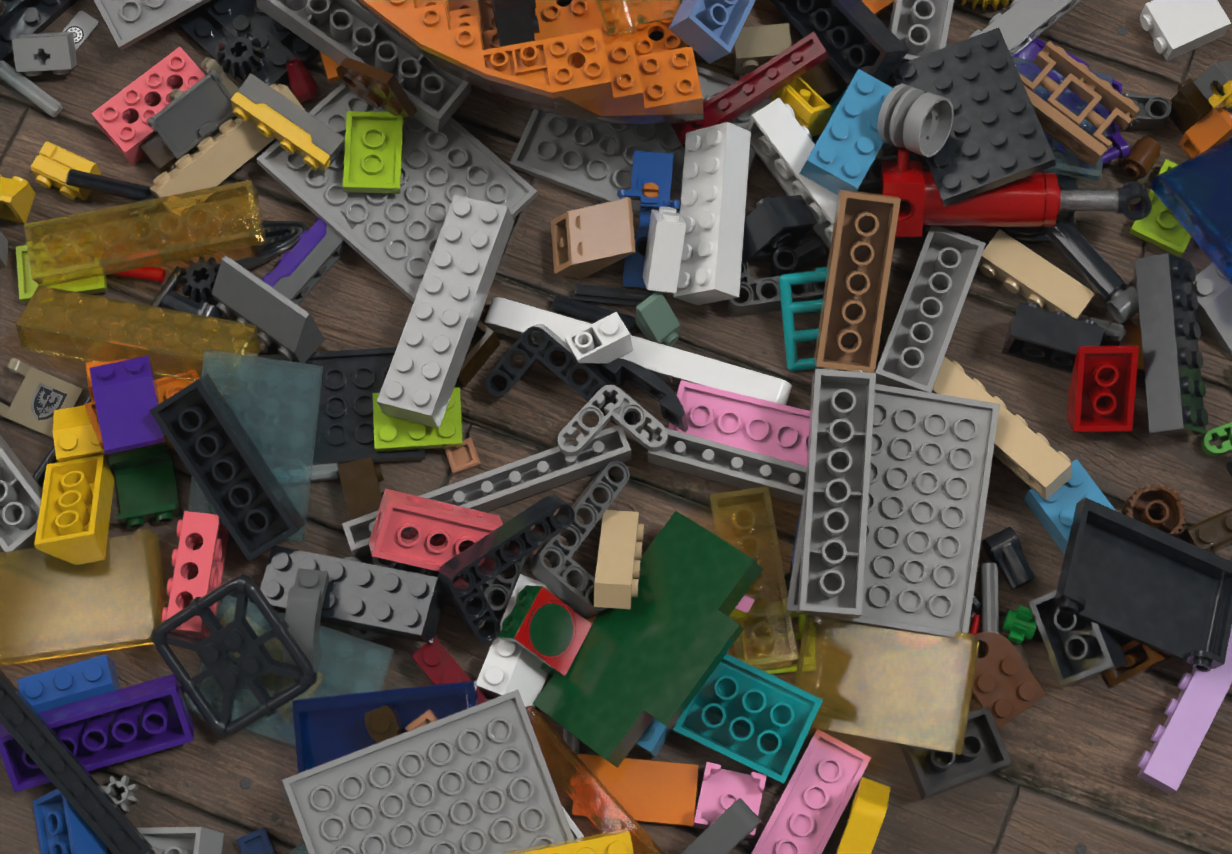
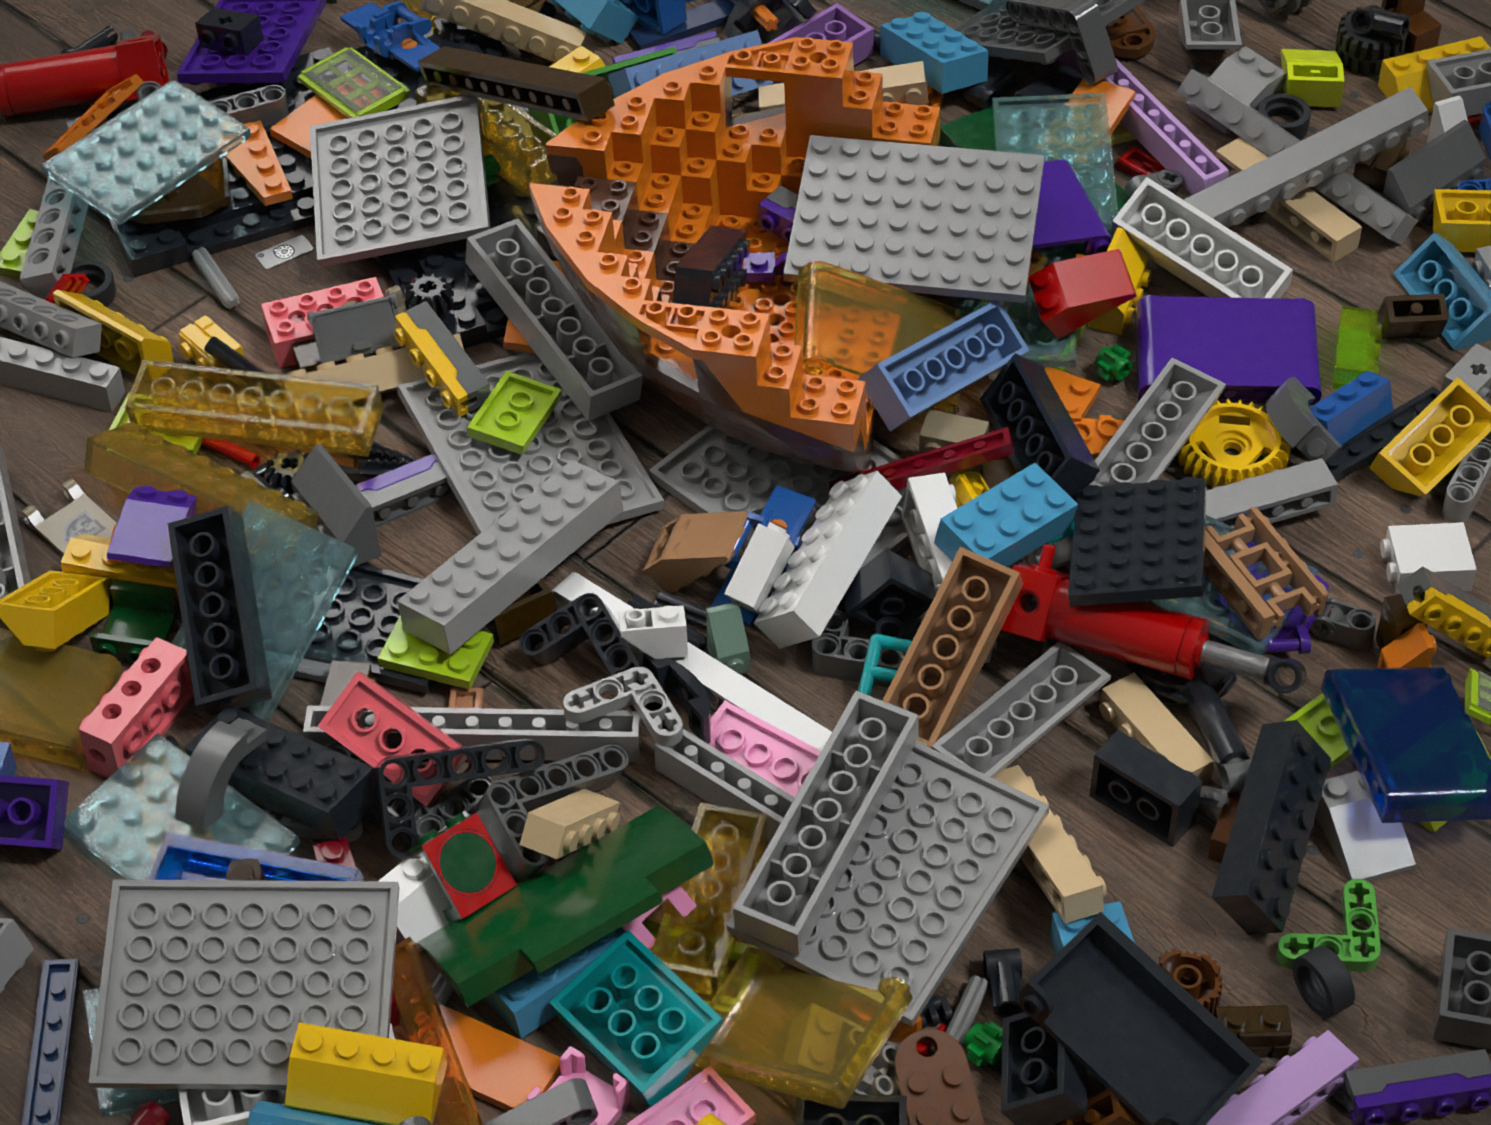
camera: 20 degrees right, 25 degrees down
(59, 46) = (262, 248): light grey brick -> none
(239, 638) = (149, 779): black plate -> none
(300, 80) = (478, 341): dark red cone -> none
(376, 87) = (543, 353): reddish brown plate -> none
(915, 120) = (1069, 513): light grey wheel -> none
(1102, 389) = (1179, 839): red slope -> none
(1141, 158) = (1324, 659): reddish brown brick -> none

